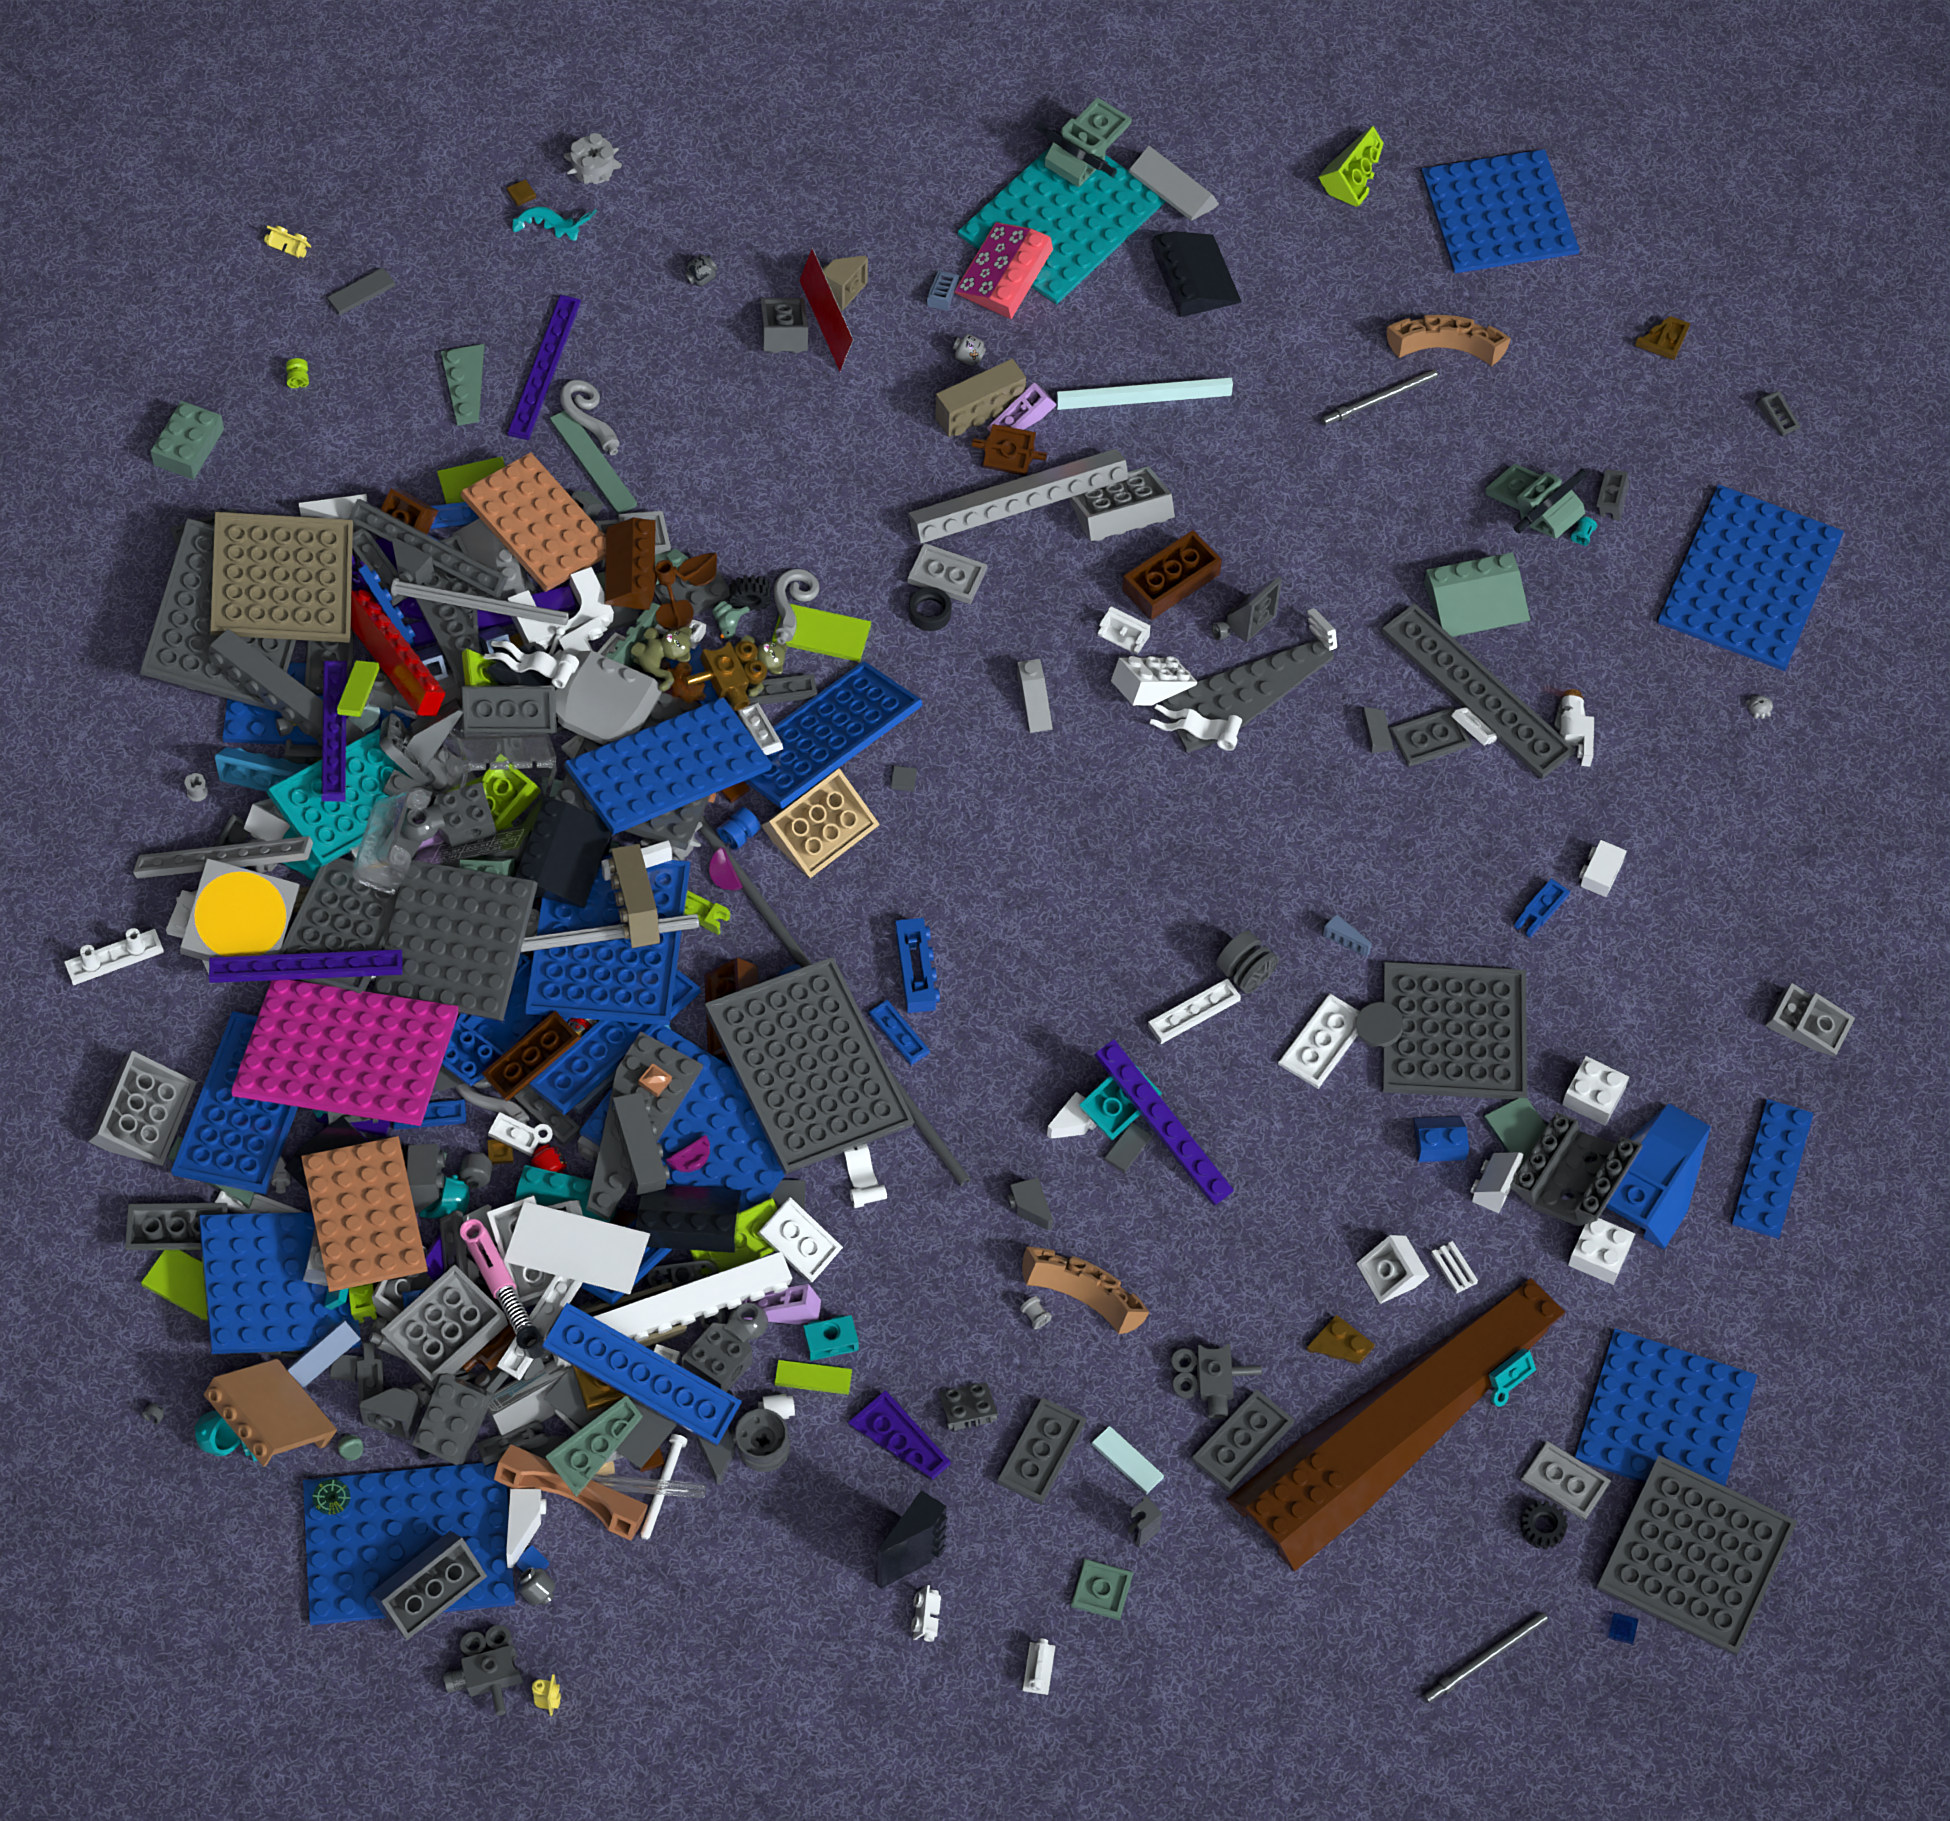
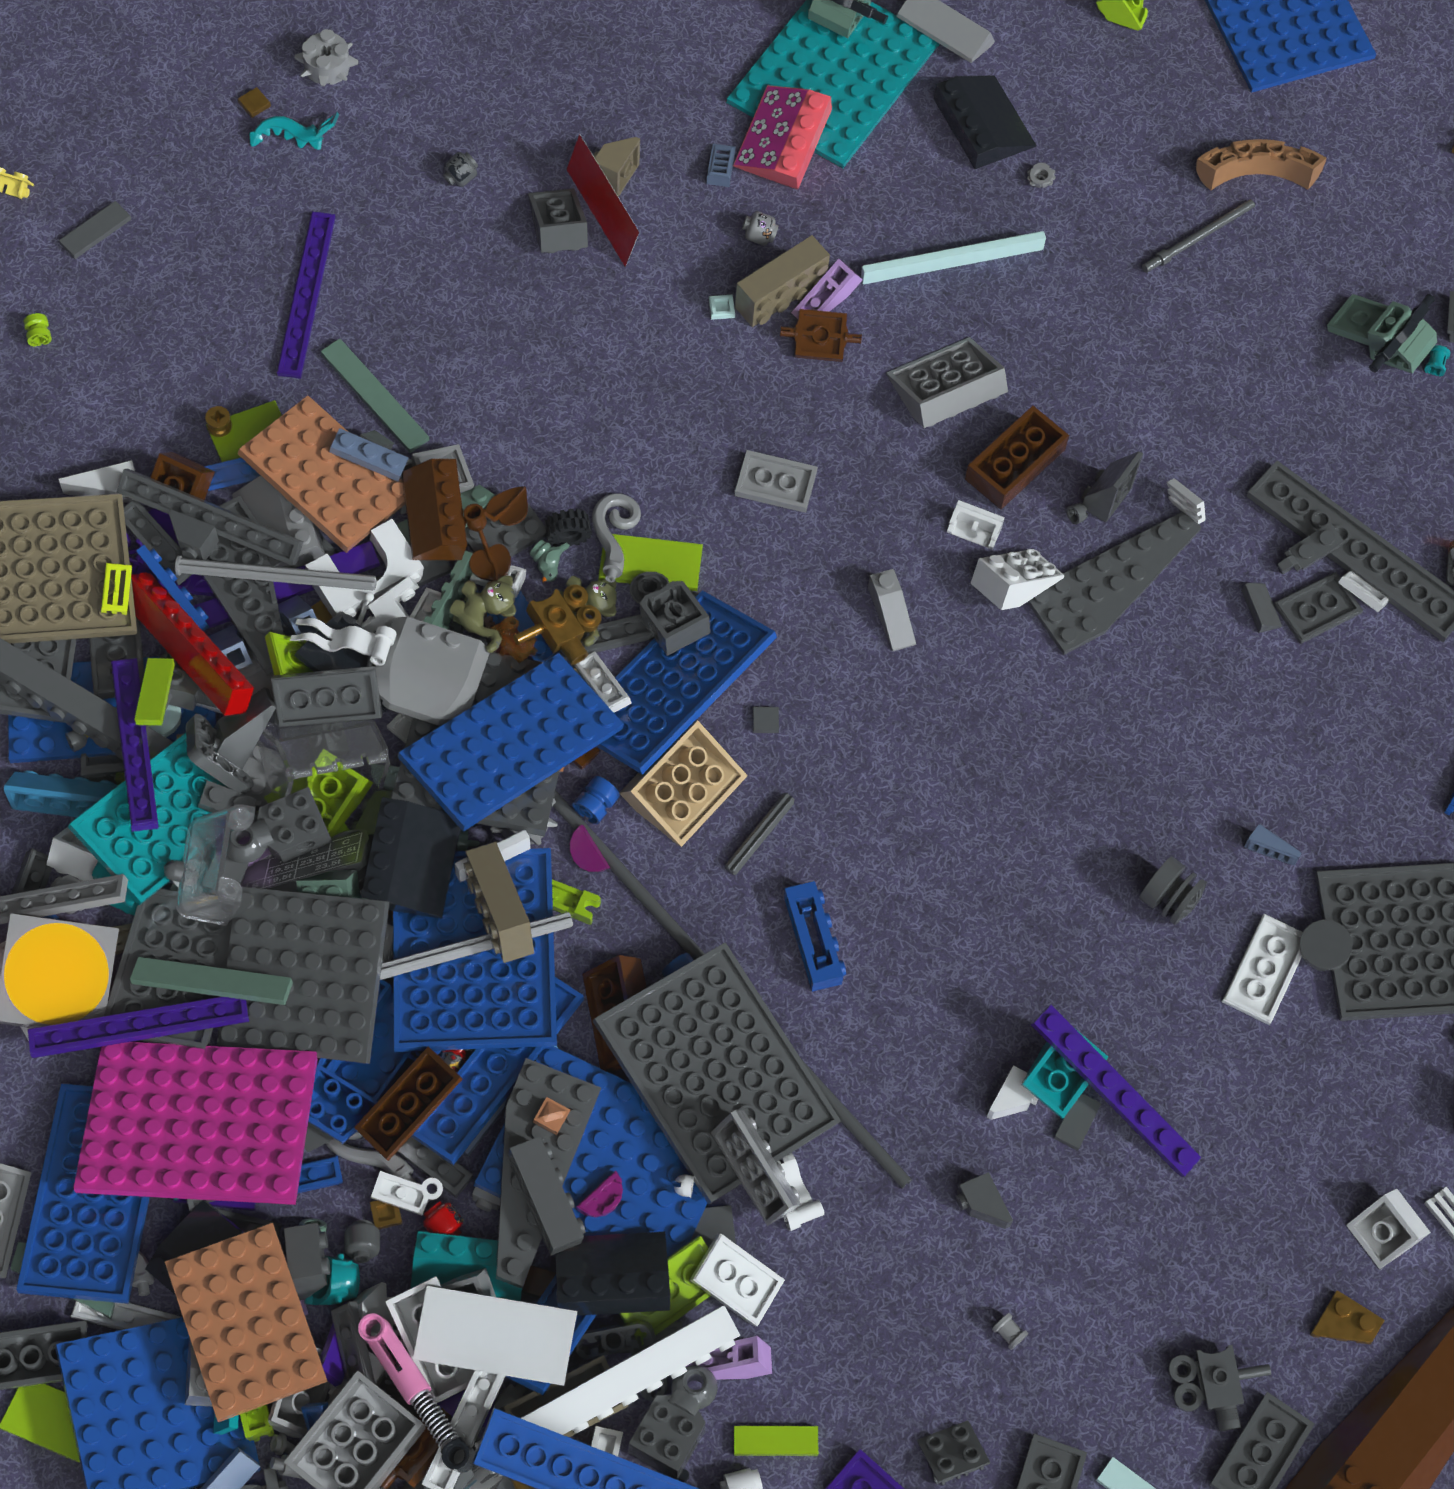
camera: 10 degrees left, 5 degrees up
(332, 615) = (115, 607): none -> neon yellow tile
(354, 840) = (174, 870): none -> dark grey hinge
(374, 936) = (211, 980): none -> sand green tile
(452, 472) = (222, 425): none -> pearl gold wheel
(464, 379) = (221, 316): sand green wing -> none
(578, 509) = (368, 454): none -> sand blue plate
(602, 431) = (381, 361): light grey plant -> none
(766, 1155) = (686, 1188): none -> white hinge
(821, 1347) = (778, 1404): teal brick -> none
(829, 674) = (669, 611): none -> dark grey brick
(829, 1143) = (755, 1166): none -> light grey slope
(882, 874) = (759, 834): none -> dark grey axle
(899, 1032) = (806, 1015): blue tile -> none
(922, 416) = (722, 307): none -> light aqua tile
(927, 623) = (764, 540): black tyre -> none
(1018, 495) = (838, 386): light grey brick -> none
(1086, 1284) = (1063, 1290): medium nougat brick -> none
(1194, 1011) = (1122, 952): white plate -> none
(1202, 728) = (1077, 626): white flag -> none
(1240, 328) = (1043, 172): none -> light grey animal
(1431, 684) = (1311, 549): none -> dark grey hinge
(1441, 1139) = (1413, 1067): blue slope -> none
(1477, 594) = (1340, 443): sand green slope -> none

